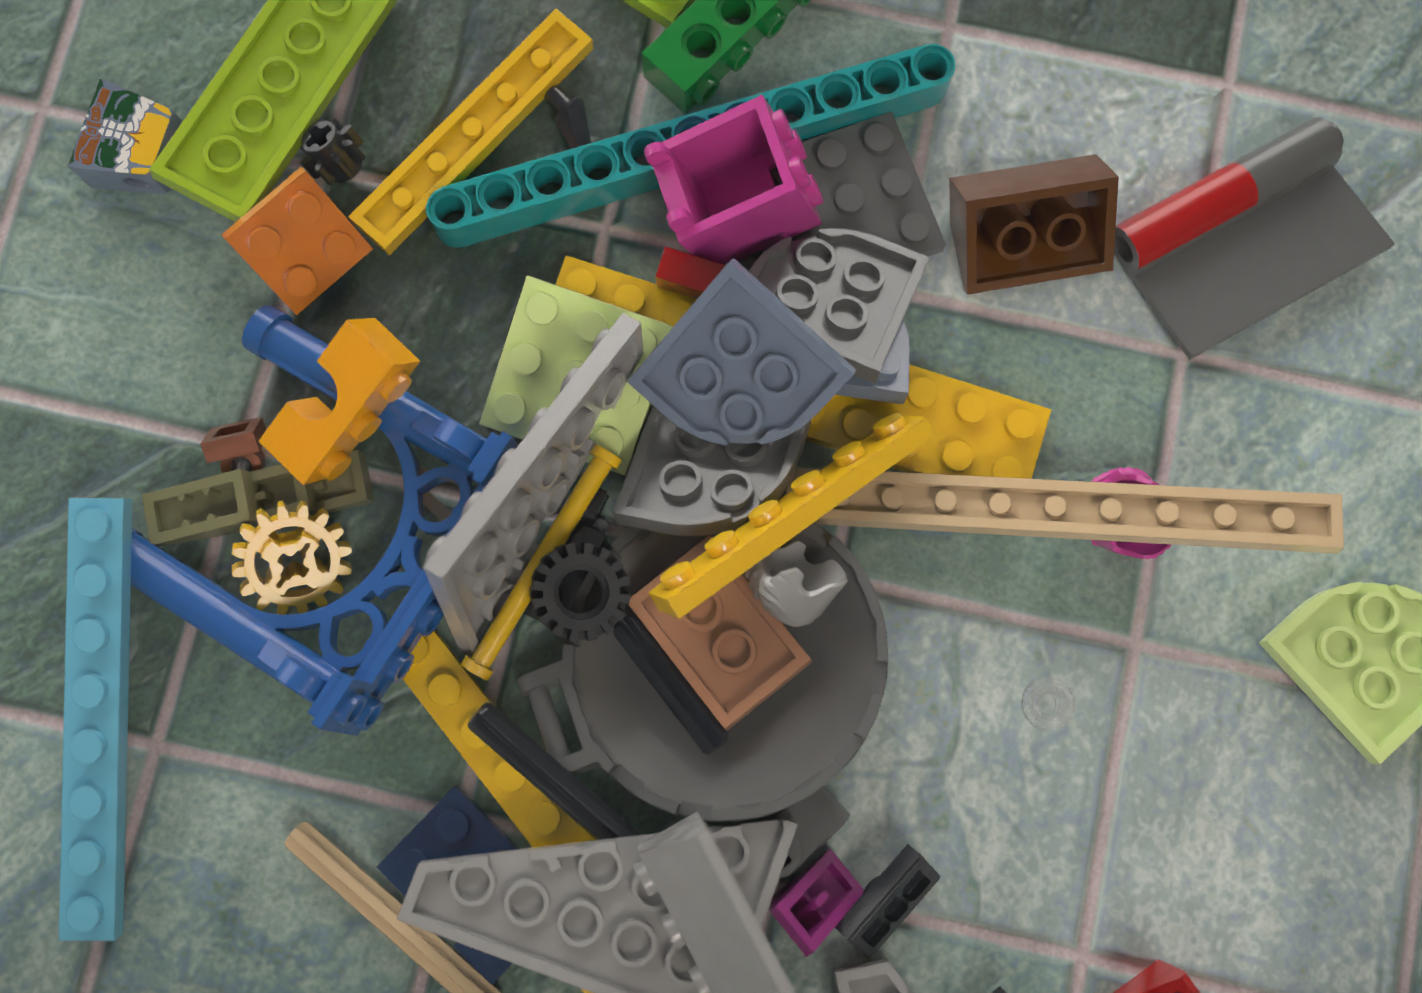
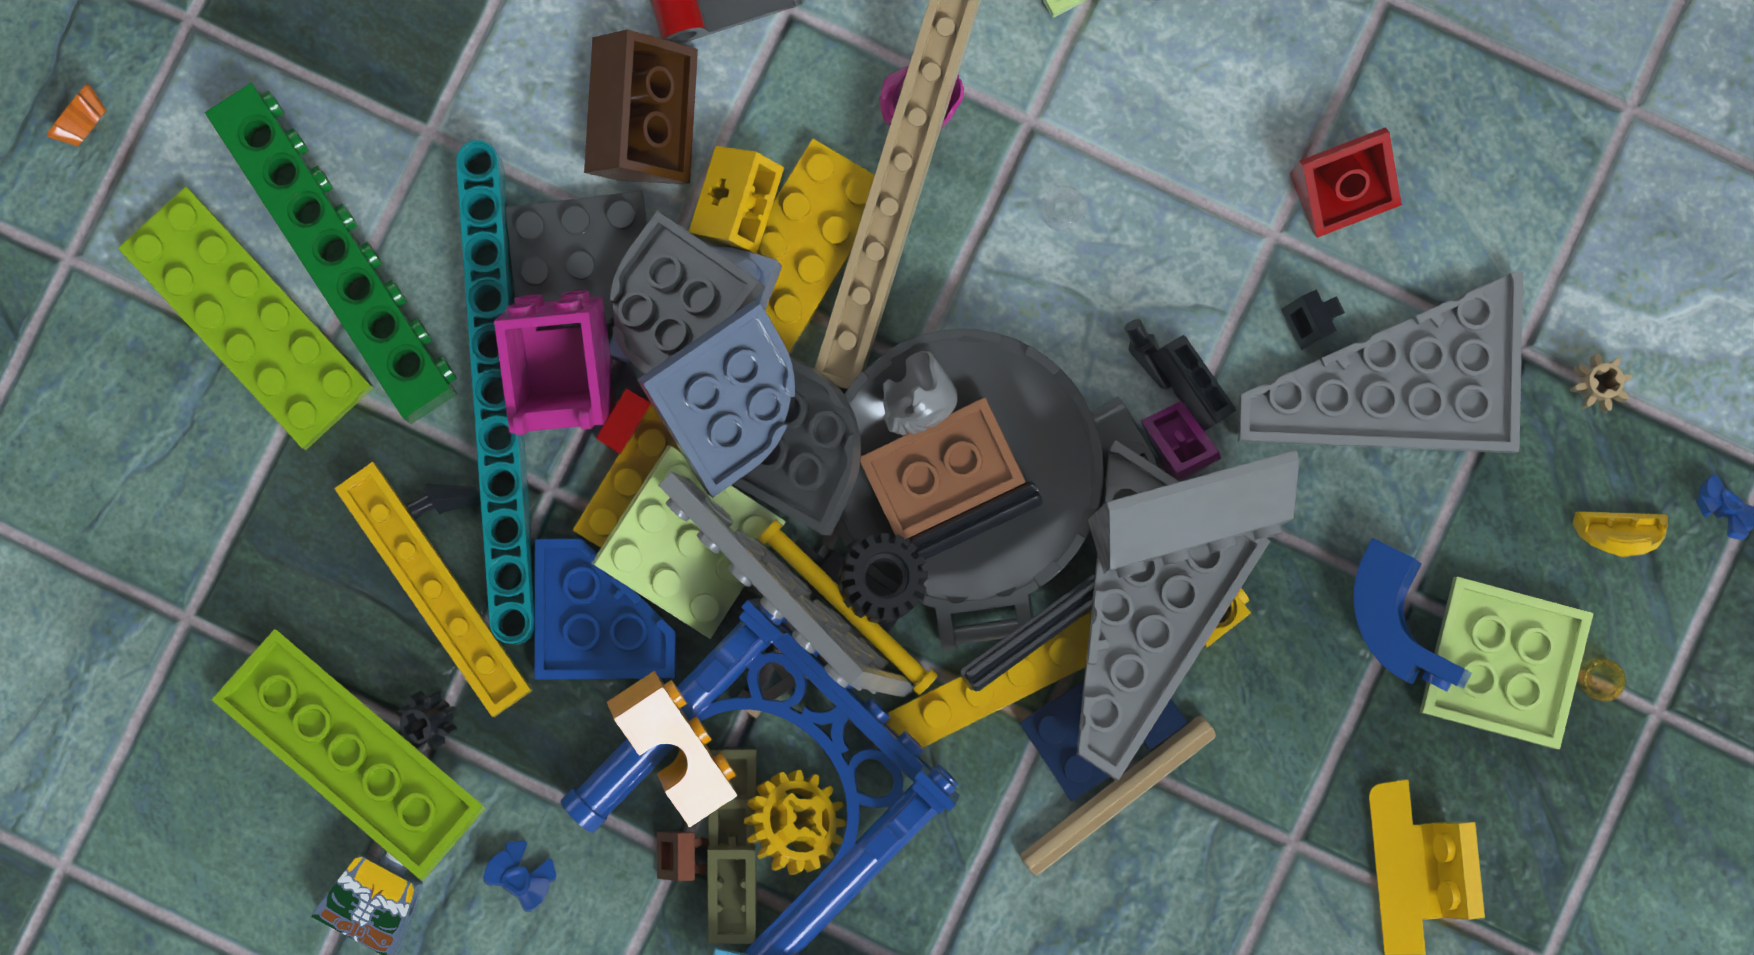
camera: 70 degrees left, 5 degrees up
(176, 296) = (504, 872): none -> blue piece
(297, 241) = (508, 764): orange plate -> none
(466, 298) = (592, 622): none -> blue plate
(778, 521) = (863, 390): yellow plate -> none
(913, 830) = (1142, 347): none -> black bar
(964, 340) = (736, 199): none -> yellow brick

